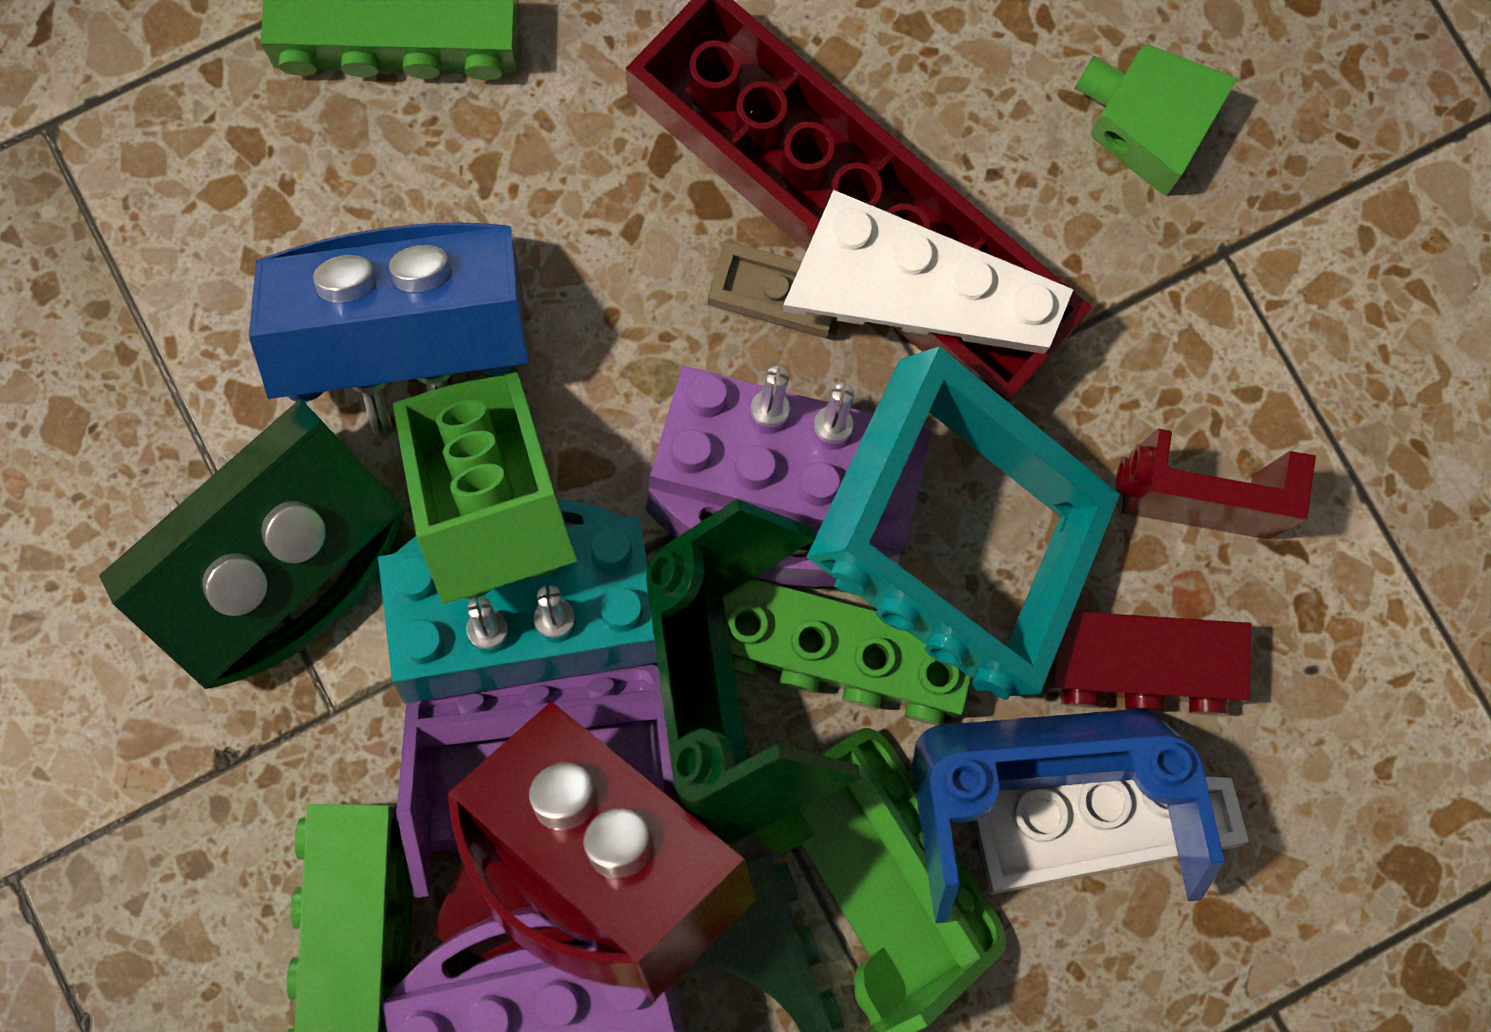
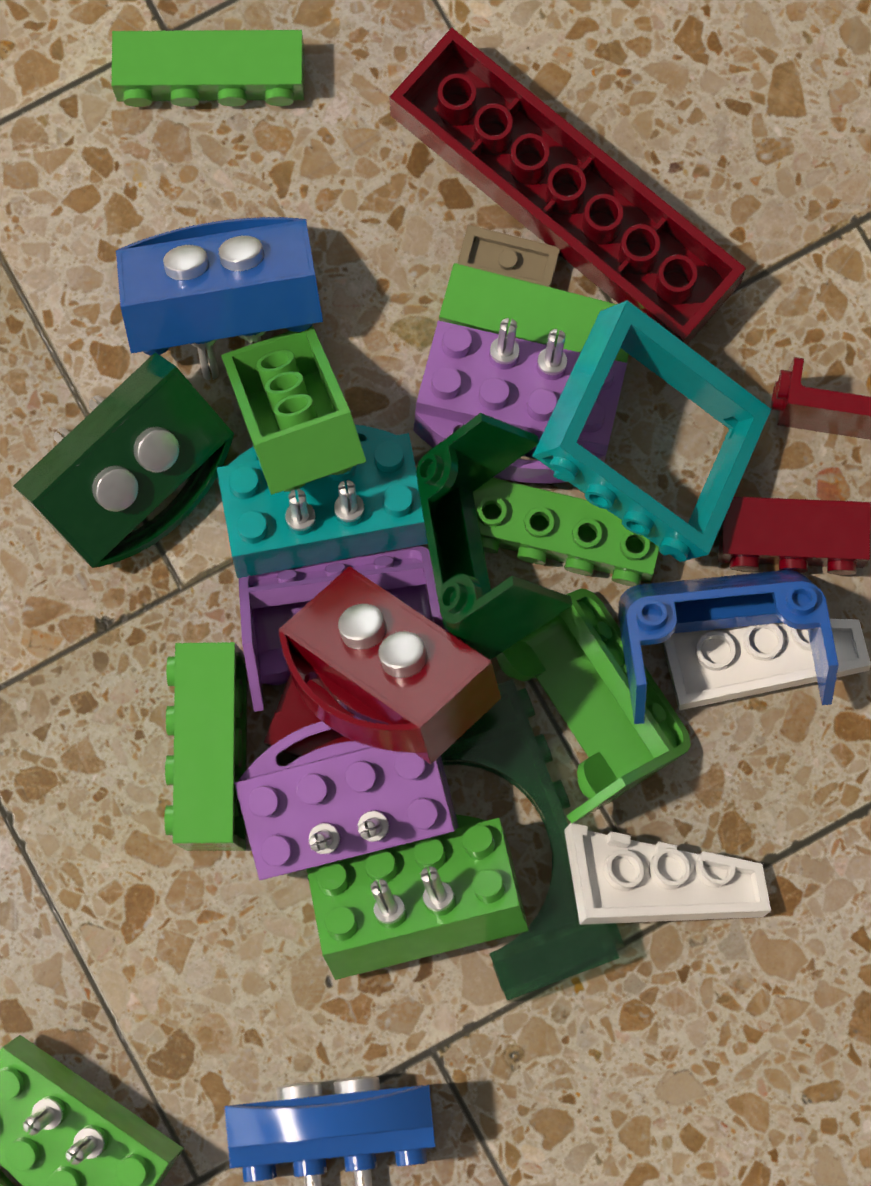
camera: 10 degrees right, 0 degrees up
(748, 339) = (486, 298): none -> bright green brick
(906, 276) = (602, 248): white wing -> none
(1155, 111) = (798, 114): bright green torso -> none

